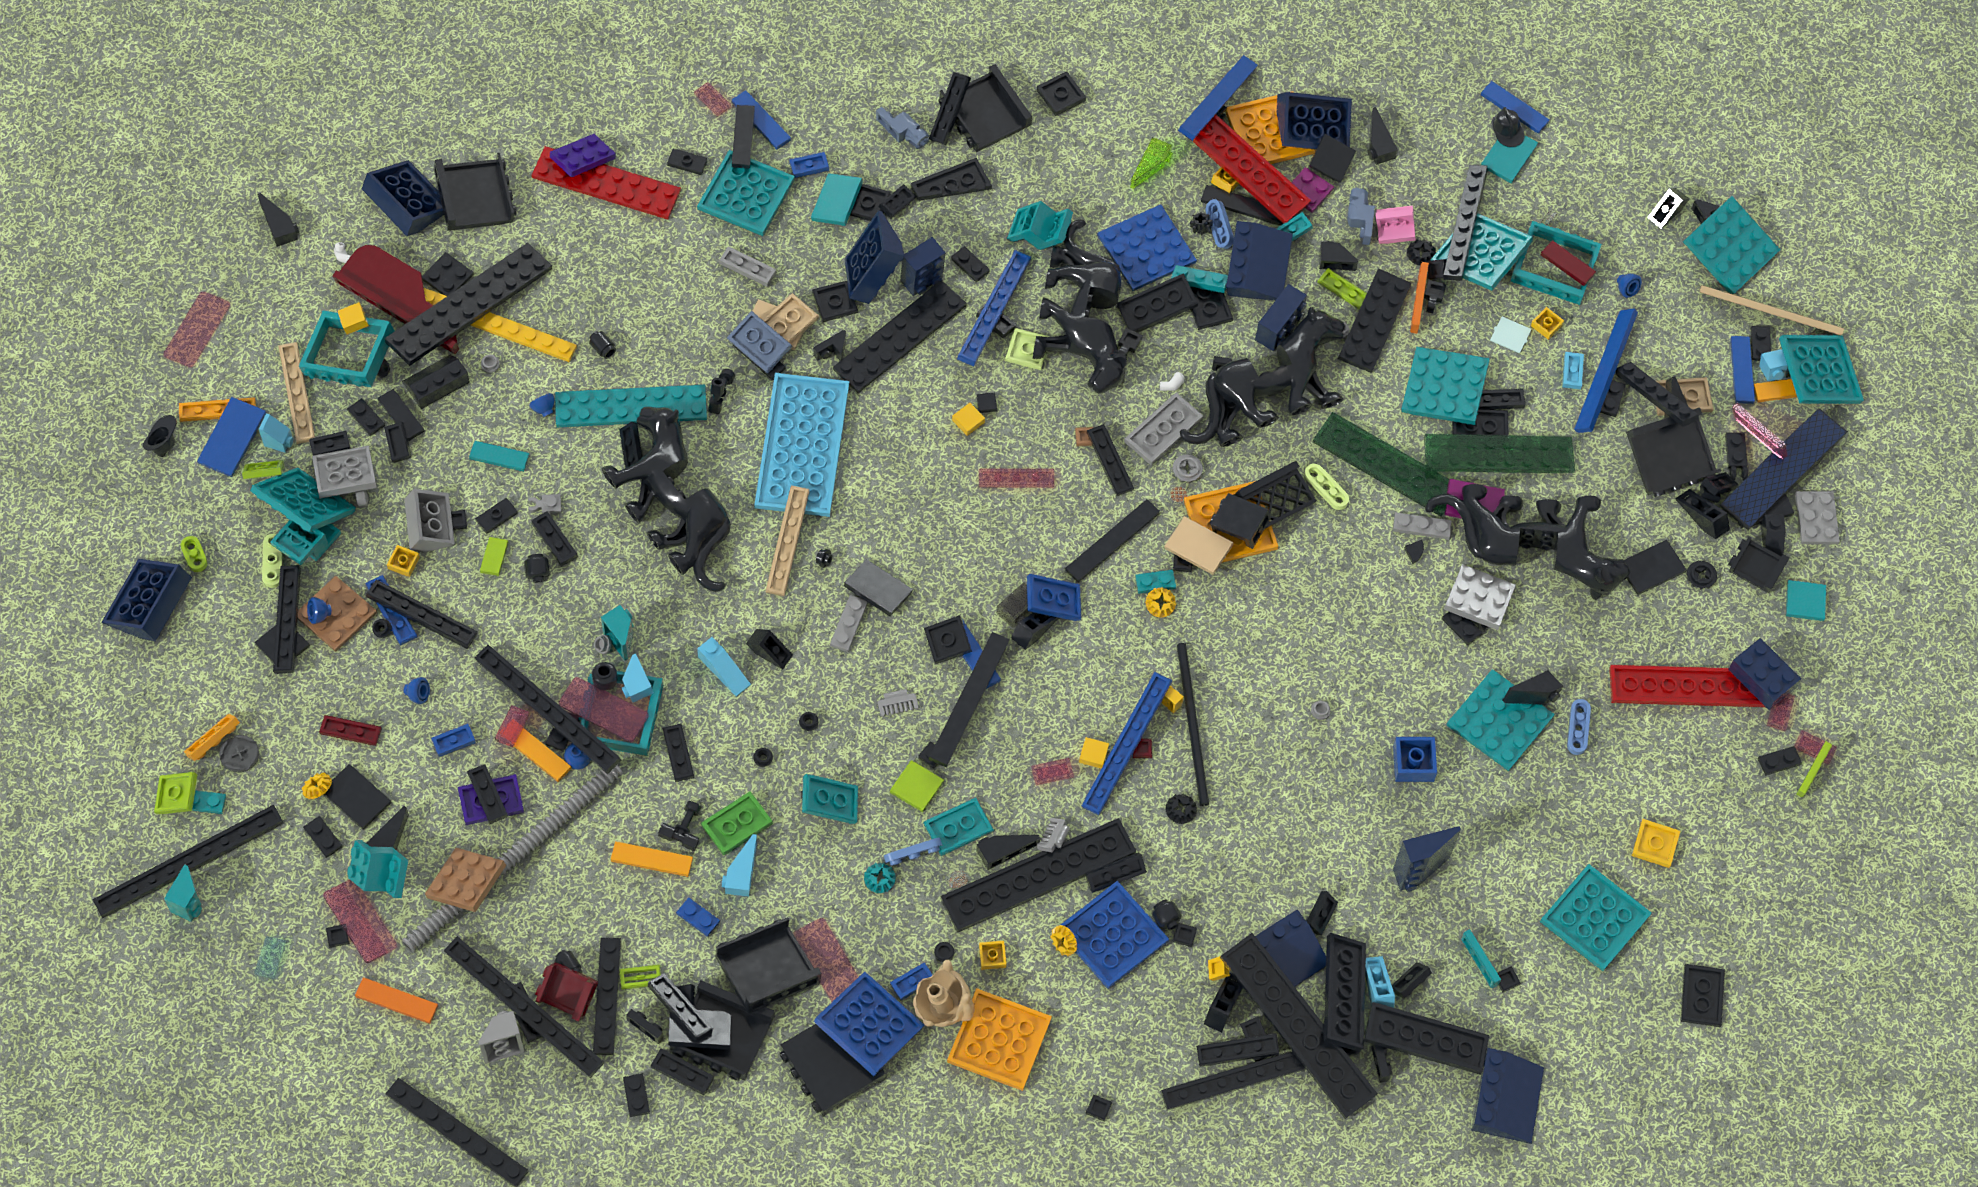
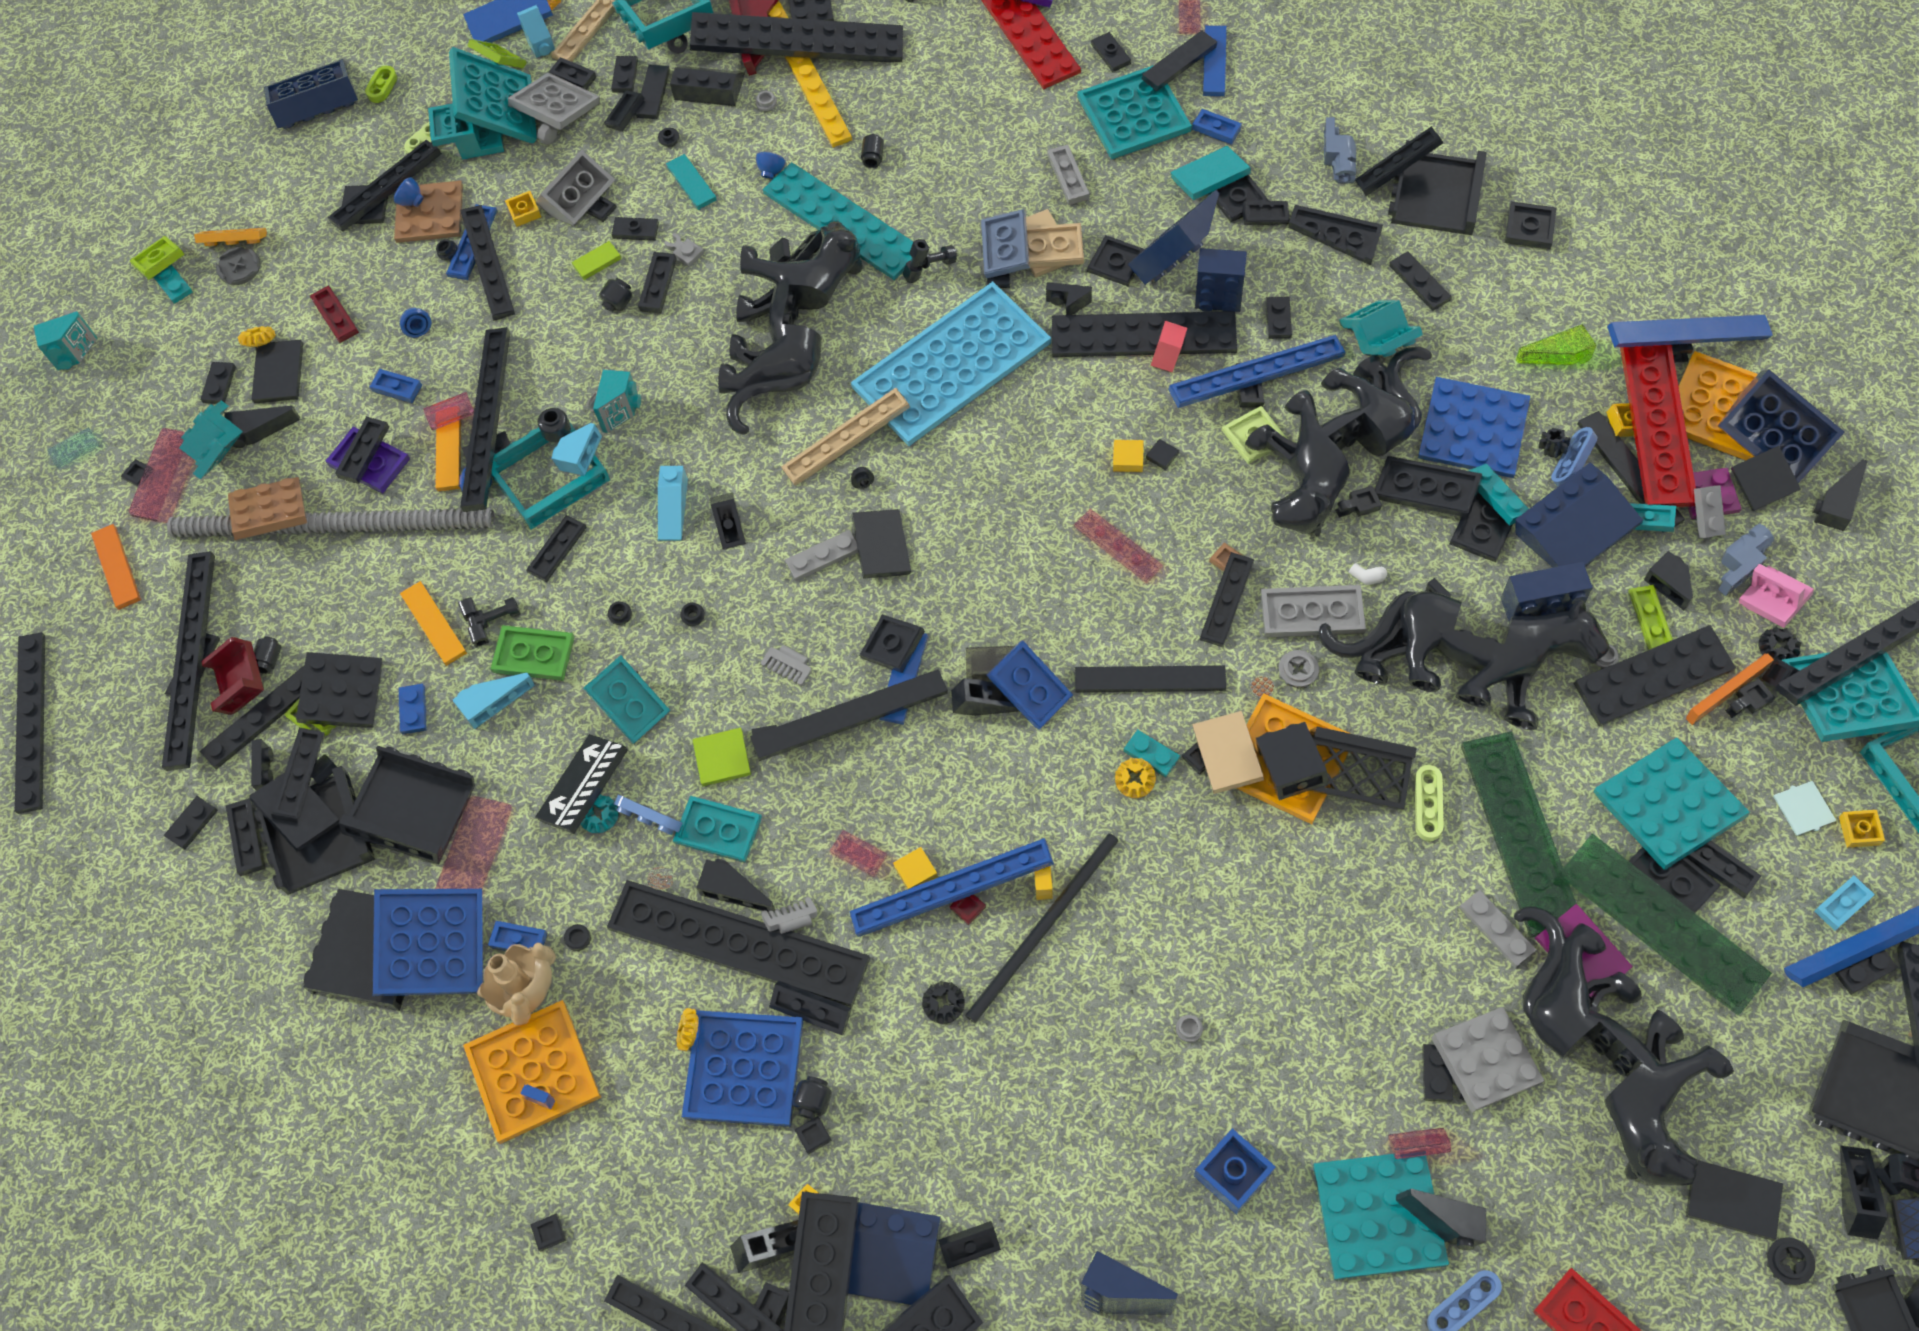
camera: 55 degrees right, 0 degrees up
(193, 857) = (110, 319): black plate -> none
(449, 441) = (666, 140): none -> black plate
(501, 1038) = (132, 666): light grey slope -> none
(603, 709) = (528, 456): clear pink piece -> none
(616, 457) = (780, 251): none -> black tile
(642, 943) = (339, 690): none -> black plate
(854, 868) = (581, 783): none -> black tile
(928, 332) = (1168, 346): none -> coral slope
(992, 955) = (614, 981): yellow piece -> none
(1023, 1043) = (538, 1096): none -> blue tile
(1030, 177) = (1420, 281): none -> black plate
(1321, 201) = (1709, 511): none -> light grey plate
(1414, 551) = (1463, 948): black tile -> none
(1487, 667) = (1419, 1143): none -> clear pink tile

